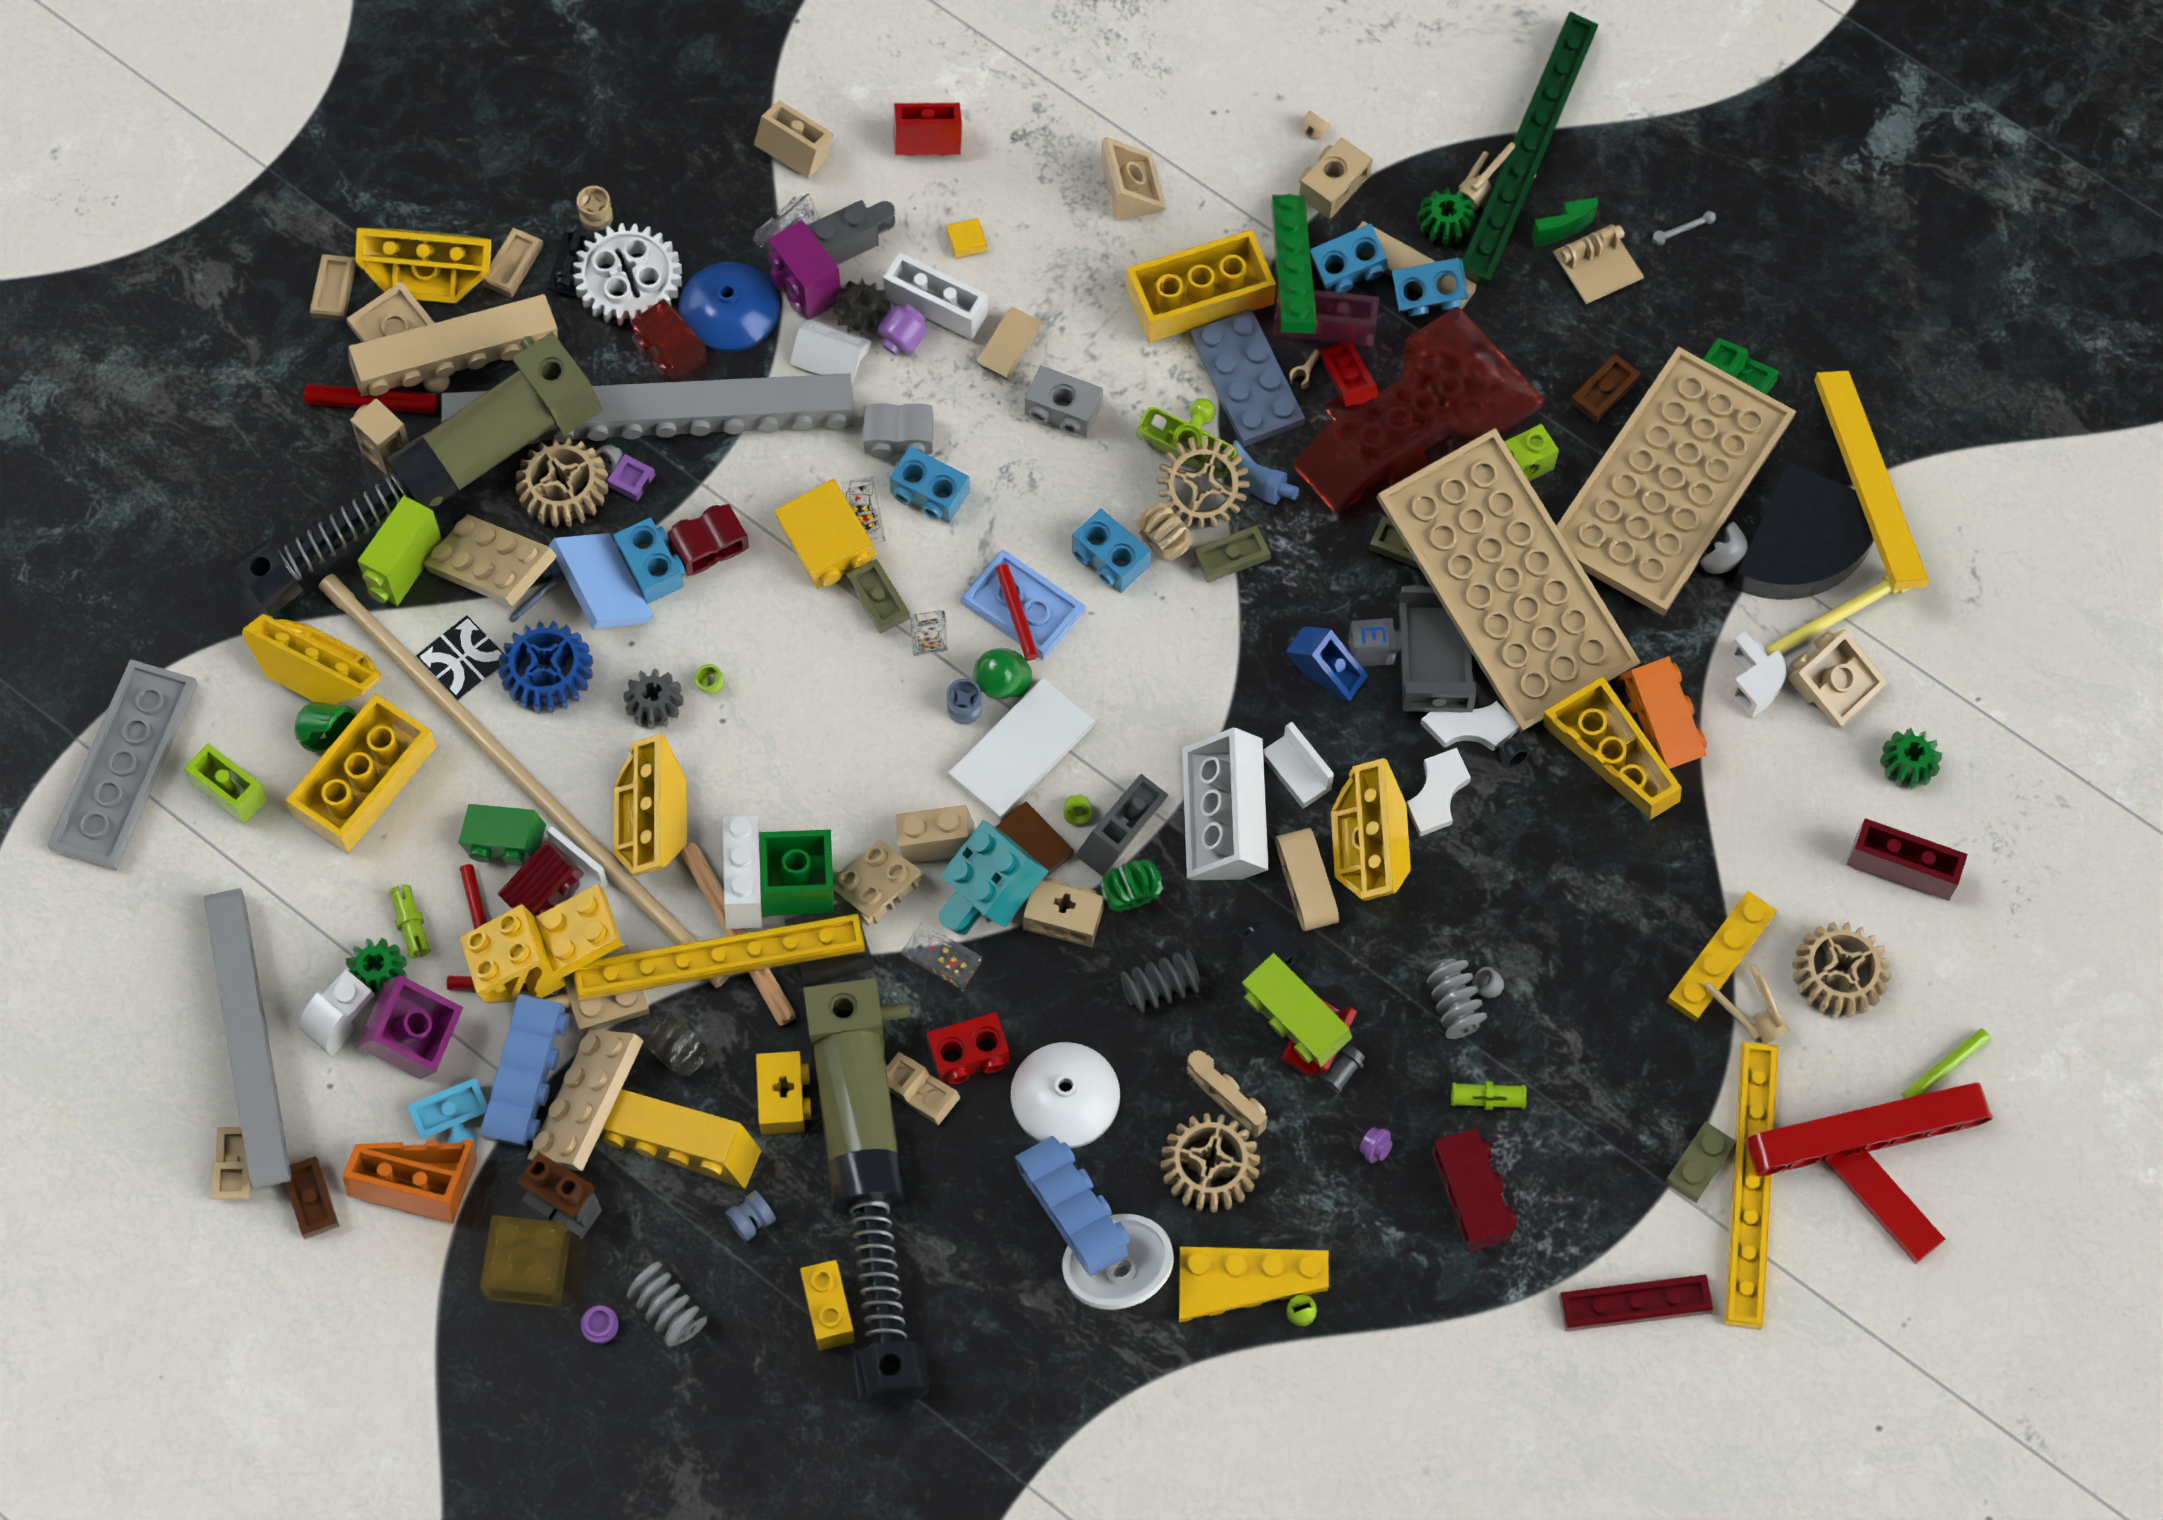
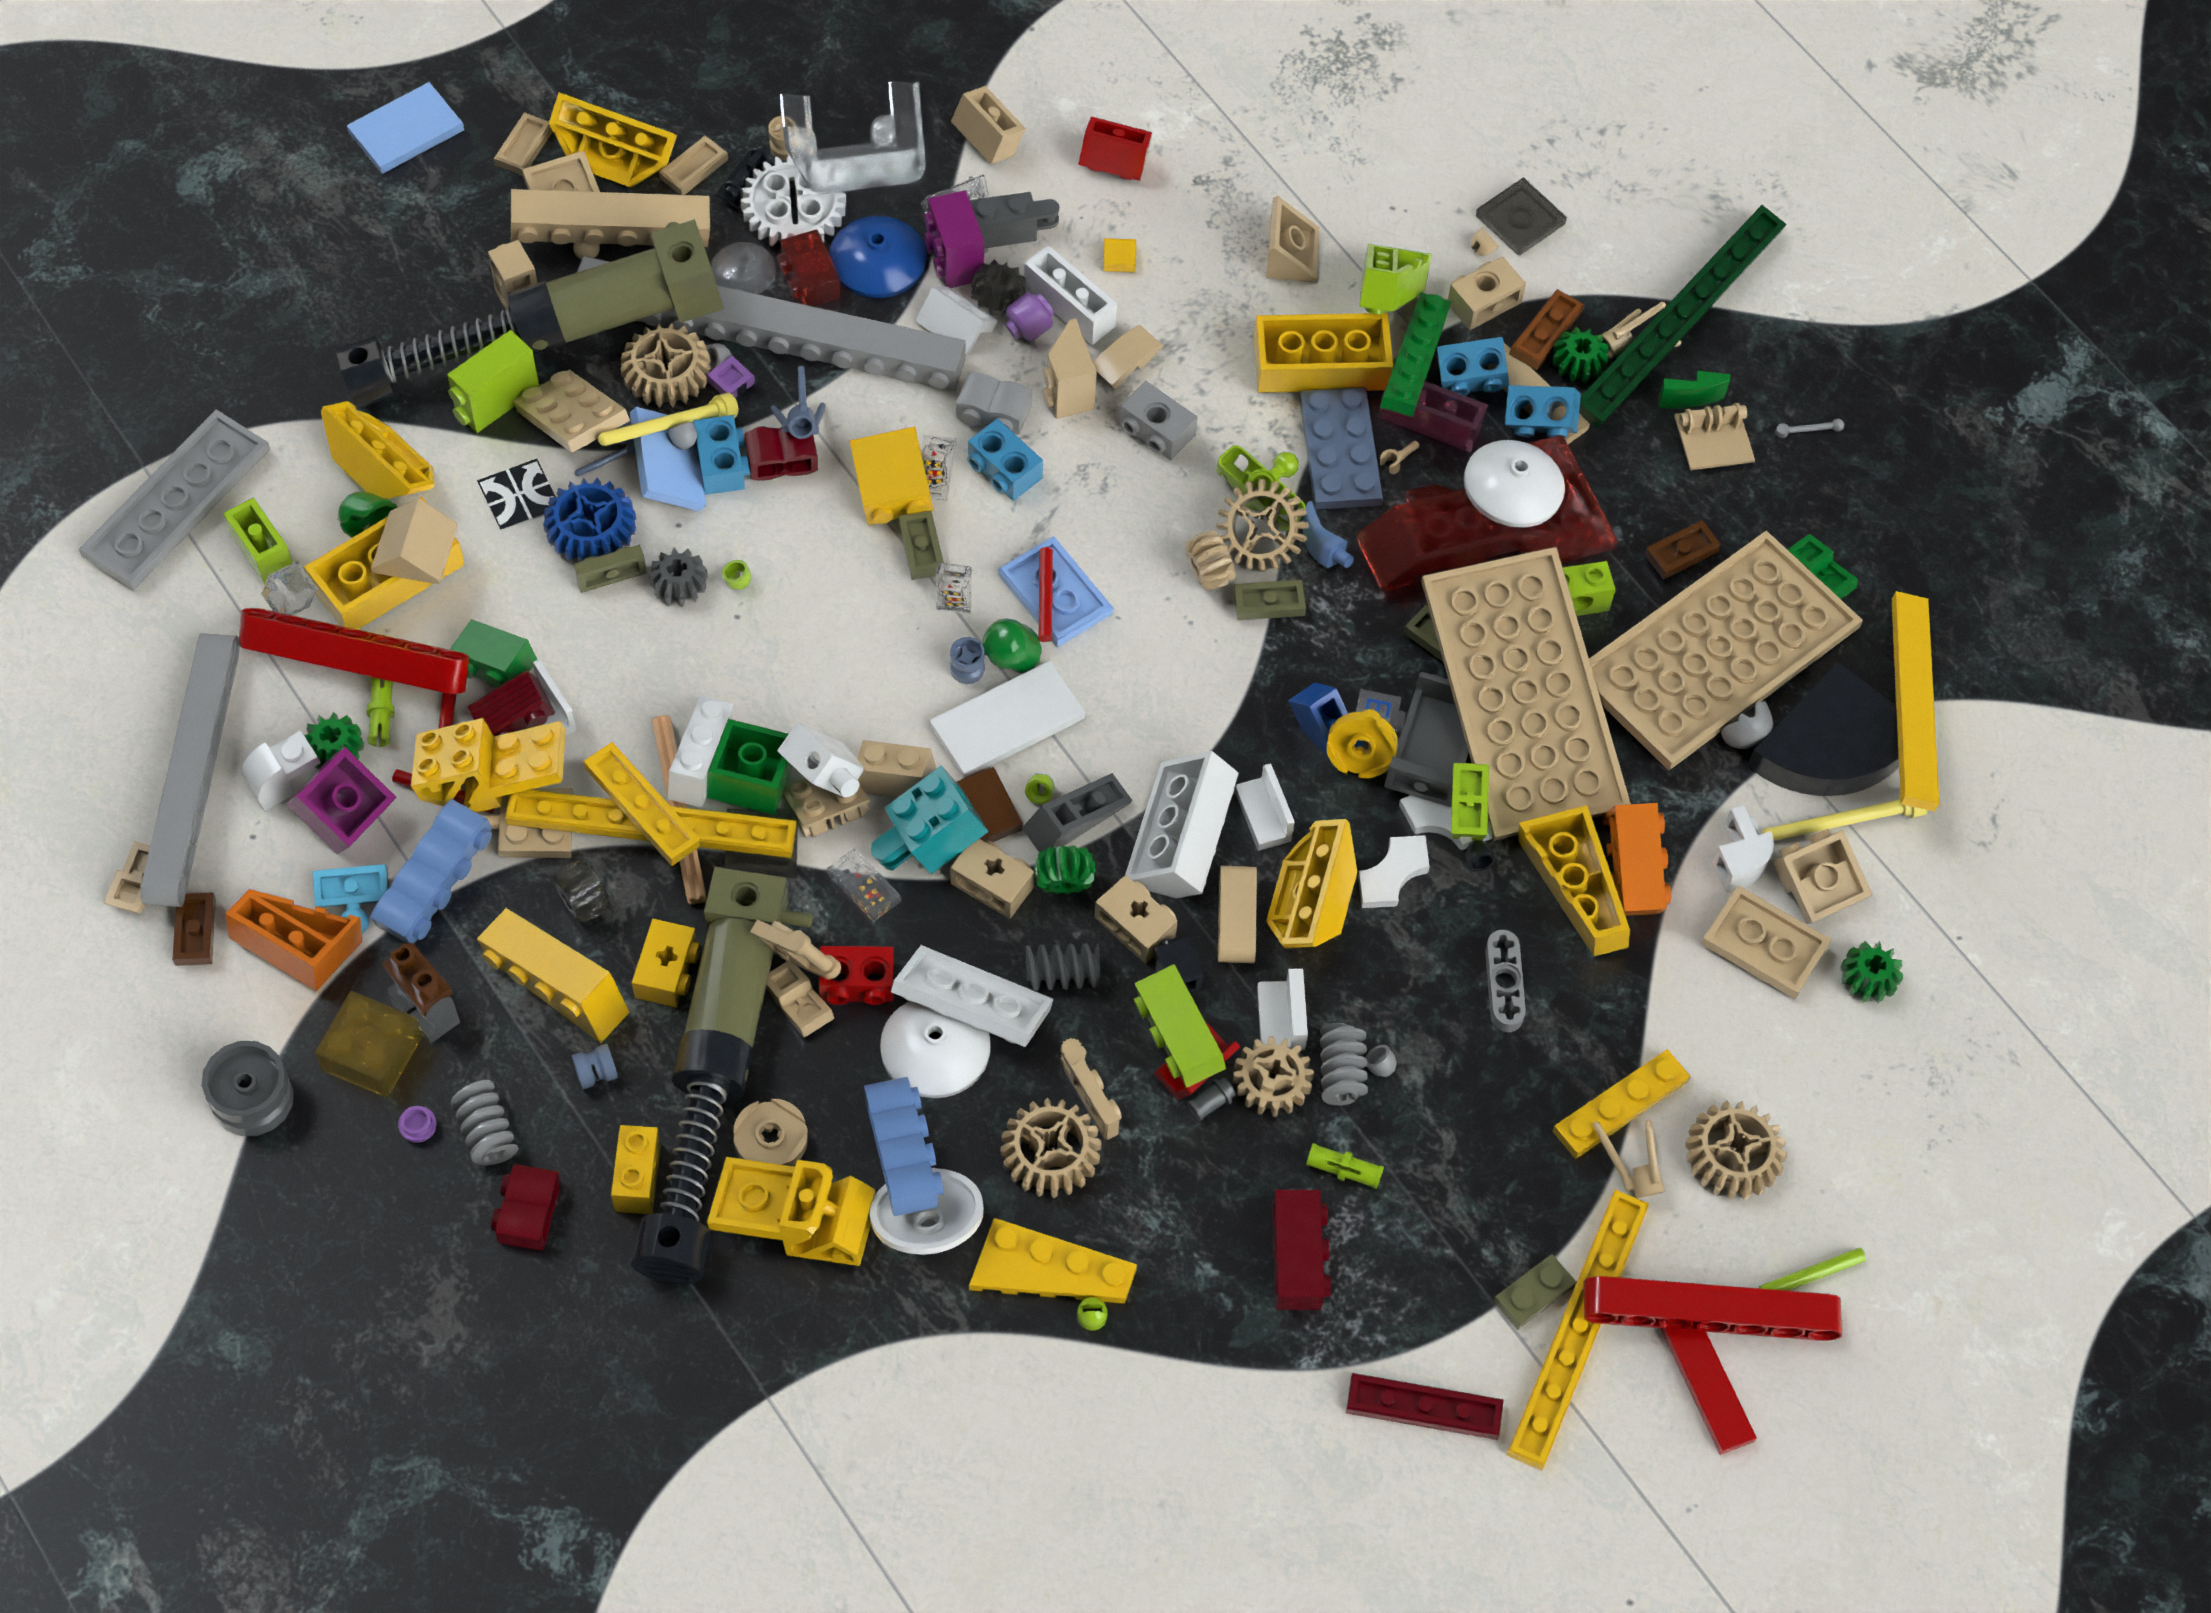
camera: 15 degrees right, 5 degrees down
(207, 304) = (405, 127): none -> light blue tile
(276, 827) = (289, 590): none -> clear brick
(346, 601) = (432, 417): tan piece -> none
(352, 398) = (536, 252): red axle -> none
(363, 870) = (353, 650): none -> red beam
(388, 744) = (415, 543): none -> tan slope
(431, 1322) = (247, 1088): none -> dark grey wheel
(574, 715) = (610, 568): none -> olive plate
(586, 1097) = (480, 912): tan plate -> none
(609, 367) = (749, 277): none -> clear dish
(610, 553) = (683, 435): none -> light grey hinge
(631, 512) = (719, 406): none -> light yellow piece
(649, 807) = (639, 669): yellow wedge -> none
(705, 203) = (889, 159): none -> clear windscreen
(706, 943) = (642, 803): none -> yellow plate
(720, 503) = (800, 418): none -> sand blue plant
(736, 1373) = (527, 1207): none -> dark red brick
(880, 849) = (837, 767): none -> white torso
(910, 1044) = (796, 948): none -> tan plate
(950, 1251) = (768, 1116): none -> tan plate
(966, 379) = (1070, 374): none -> tan slope
(992, 1295) = (794, 1206): none -> yellow piece
(1086, 1037) = (972, 996): none -> white plate
(1117, 546) = (1160, 562): dark azure brick -> none
(1226, 925) = (1135, 917): none -> tan brick
(1240, 190) = (1392, 277): none -> lime wedge
(1341, 86) = (1521, 216): none -> clear smoke tile
(1349, 374) = (1436, 467): red plate -> none
(1368, 660) = (1366, 727): none -> yellow plate
(1376, 1144) = (1218, 1179): medium lavender plate -> none
(1381, 963) = (1283, 1010): none -> white panel
(1404, 198) = (1546, 328): none -> dark orange tile
(1407, 1029) = (1269, 1060): none -> tan gear
(1426, 383) = (1509, 494): none -> white dish
(1493, 704) = (1469, 801): none -> lime hinge
(1582, 854) = (1497, 993): none -> light grey beam
(1805, 757) = (1766, 941): none -> tan plate
(1907, 859) = (1835, 1063): dark red brick -> none

